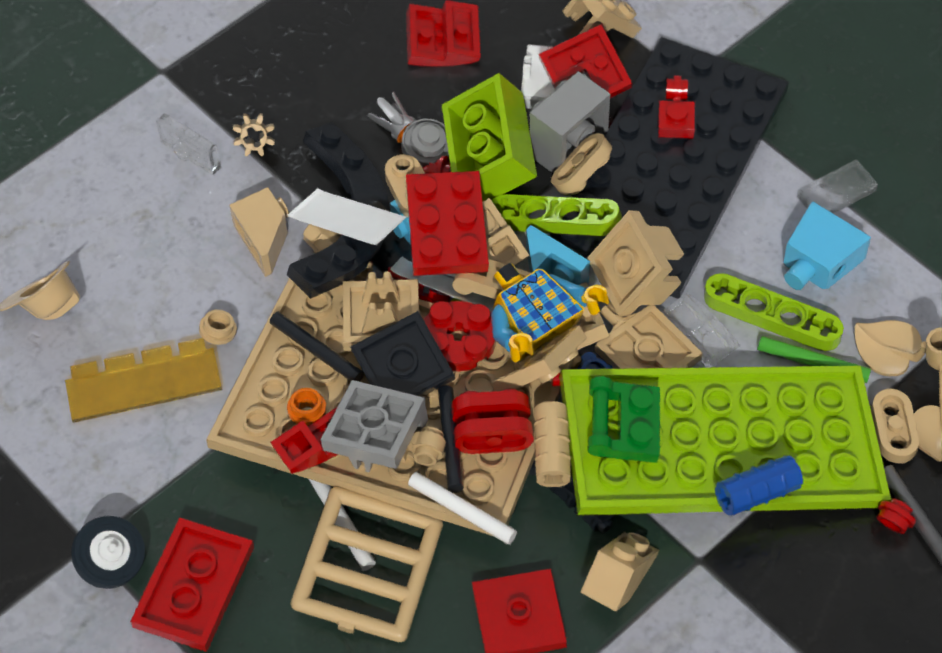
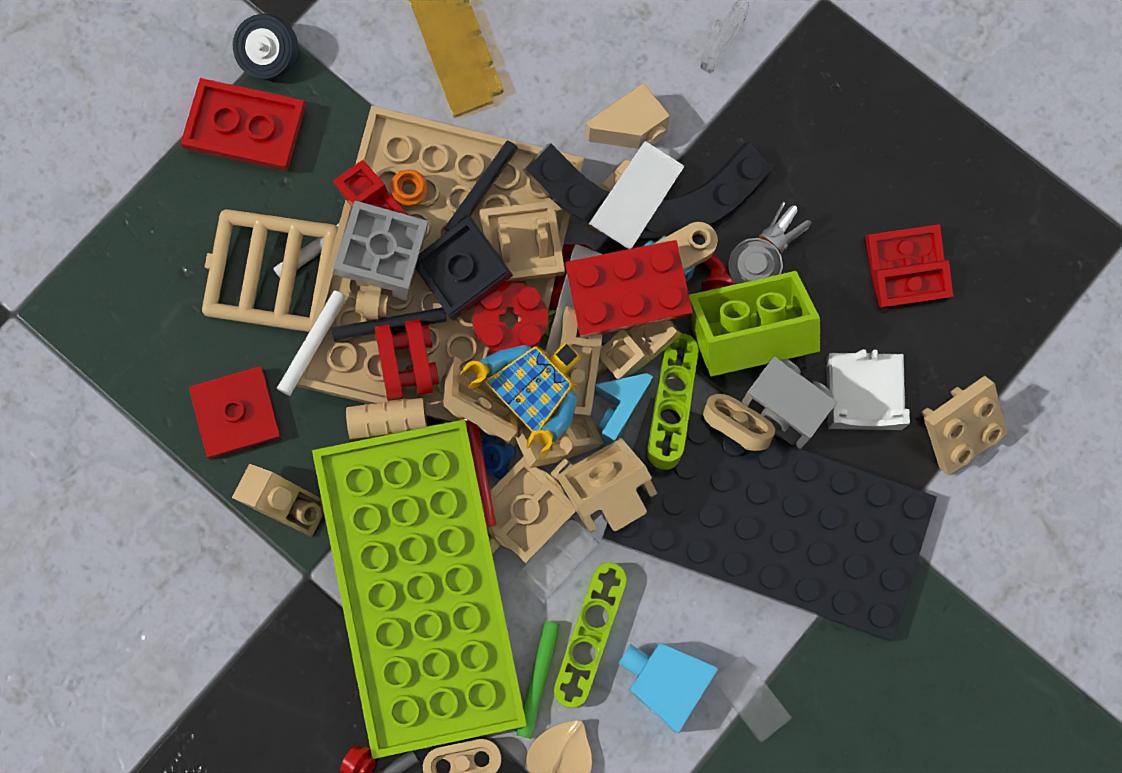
camera: 80 degrees right, 20 degrees up
(217, 327) = (515, 89): tan plate -> none
(249, 143) = (742, 94): tan gear -> none
(589, 54) = (882, 421): red plate -> none
(636, 420) = (410, 497): green plate -> none
(676, 117) = (817, 517): red plate -> none
(758, 485) = (353, 621): blue axle -> none

